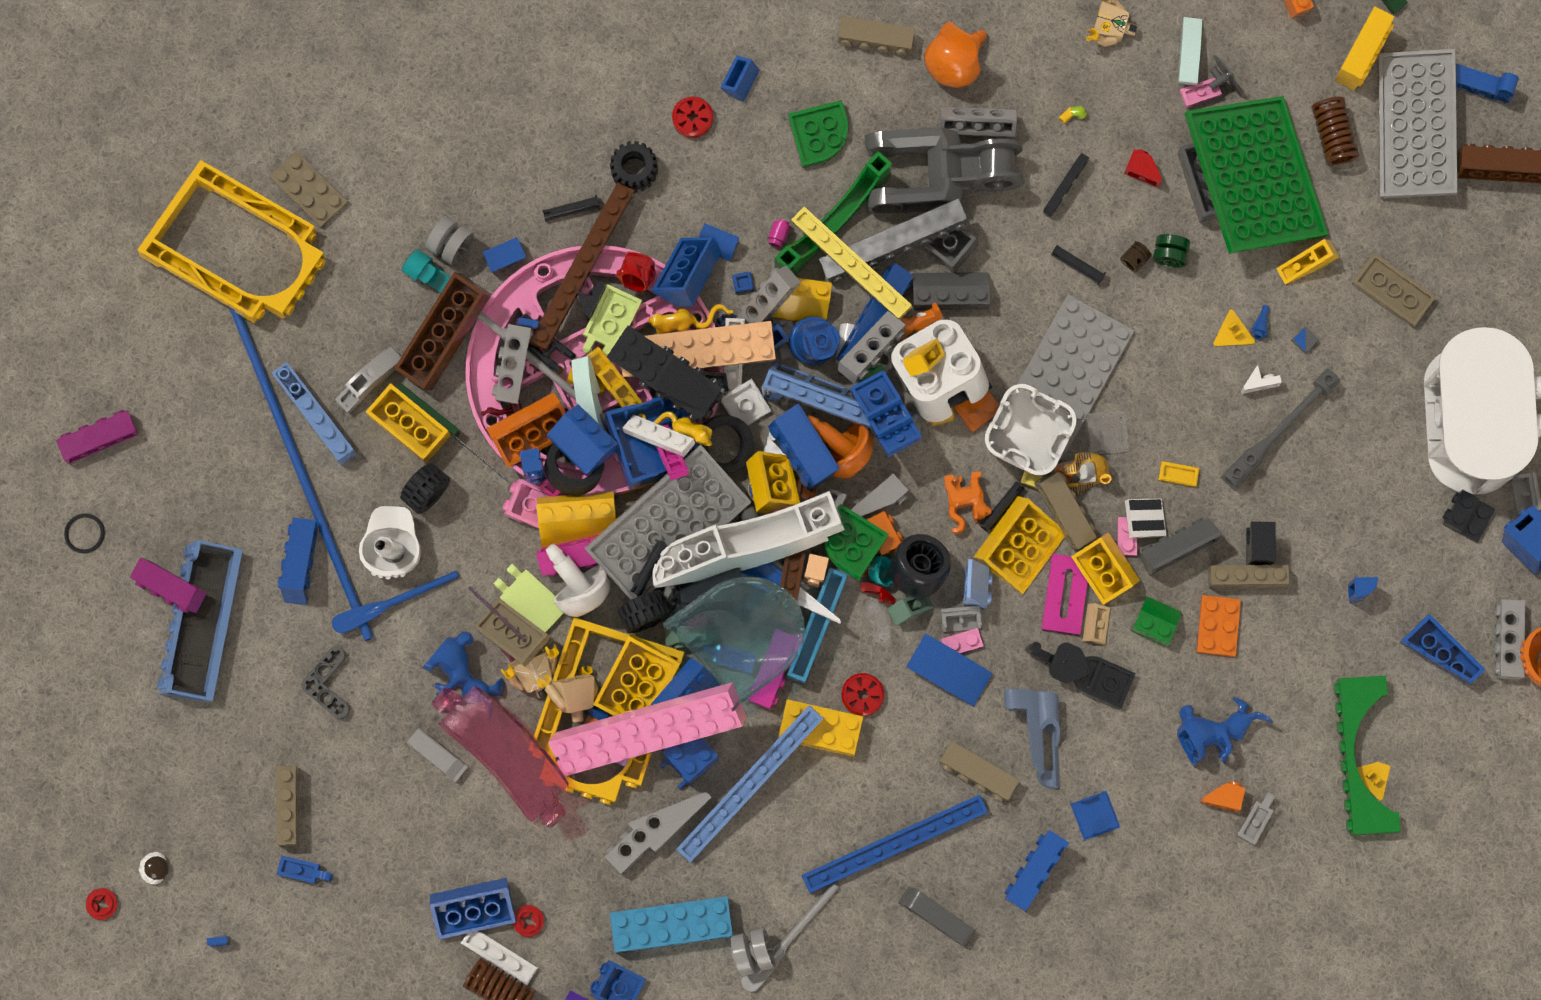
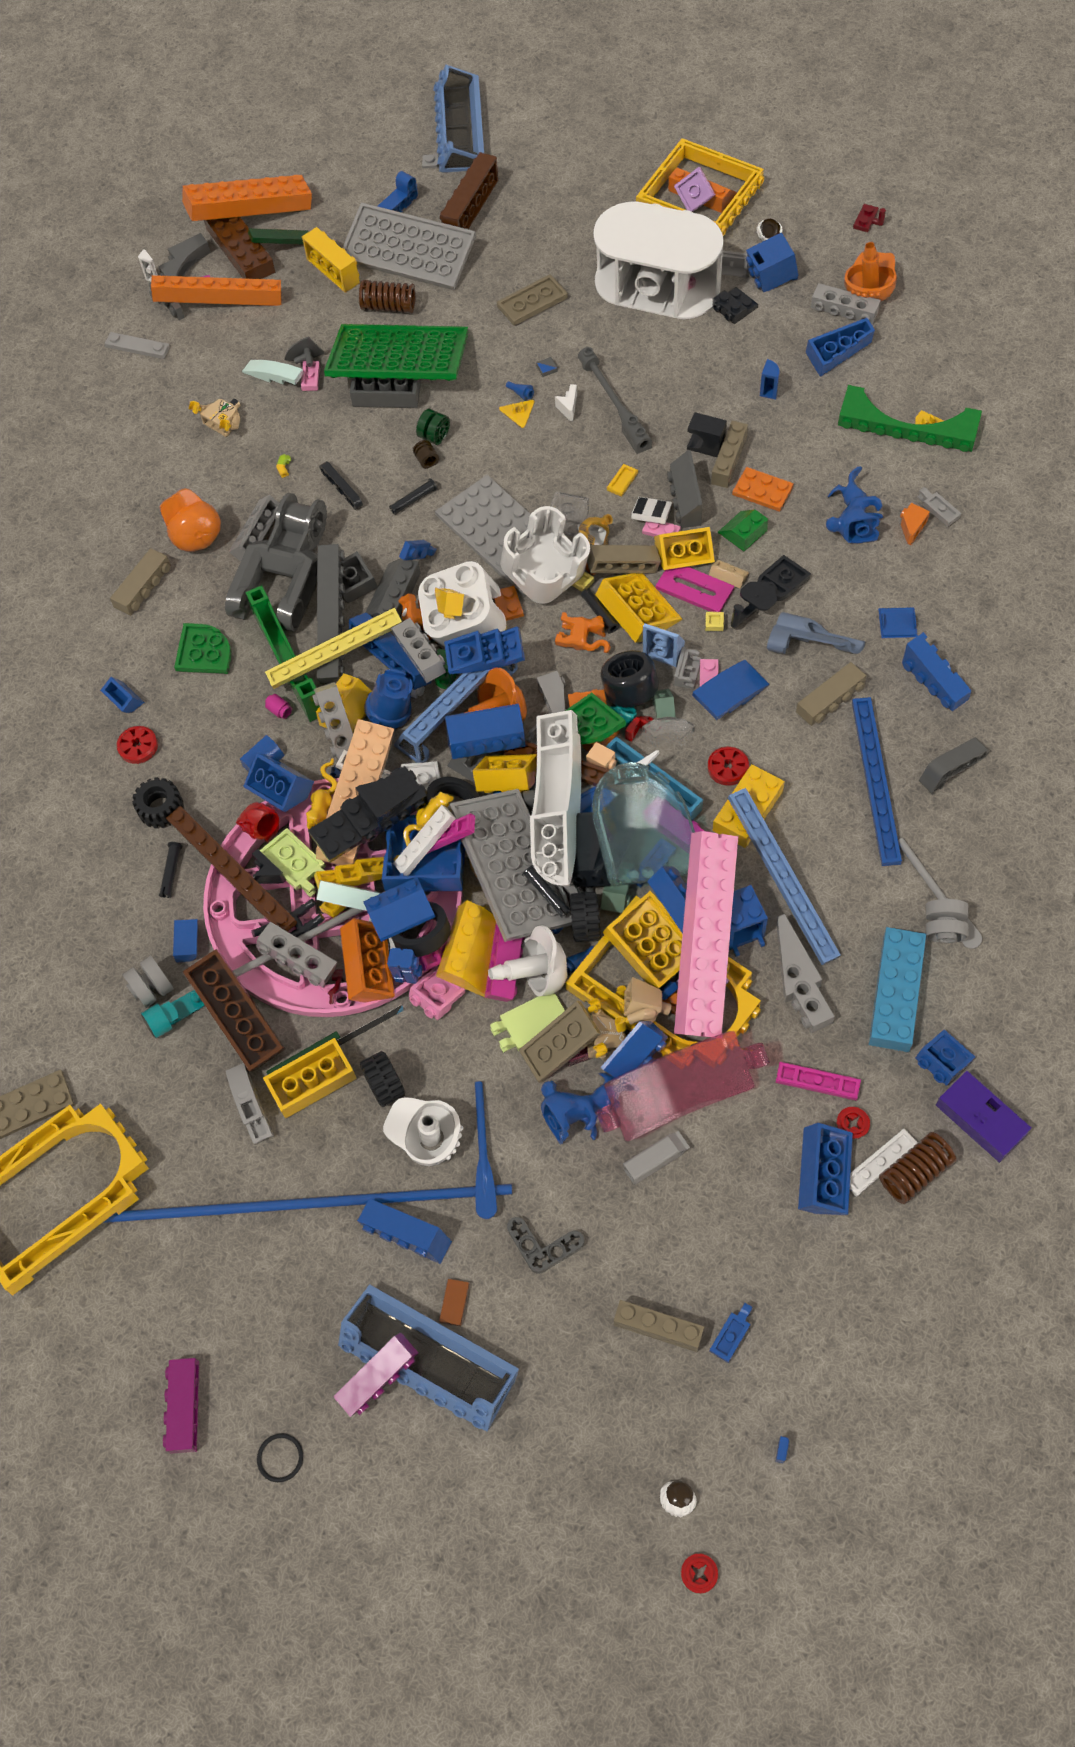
camera: 65 degrees left, 15 degrees down
(254, 626) = (454, 1302): none -> dark orange tile
(314, 413) = (259, 1167): medium blue slope -> none
(497, 614) = (535, 1050): piece -> none
(523, 704) = (636, 1049): none -> blue slope
(533, 324) = (262, 925): blue tile -> none
(557, 877) = (818, 1081): none -> dark pink plate
(601, 618) = (575, 960): none -> blue cone
(742, 282) = (308, 750): blue tile -> none
(1004, 297) = (416, 550): none -> blue hinge
(1028, 628) = (714, 621): none -> light yellow plate
(1142, 167) = (354, 428): red slope -> none
(1308, 261) = (484, 344): yellow slope -> none

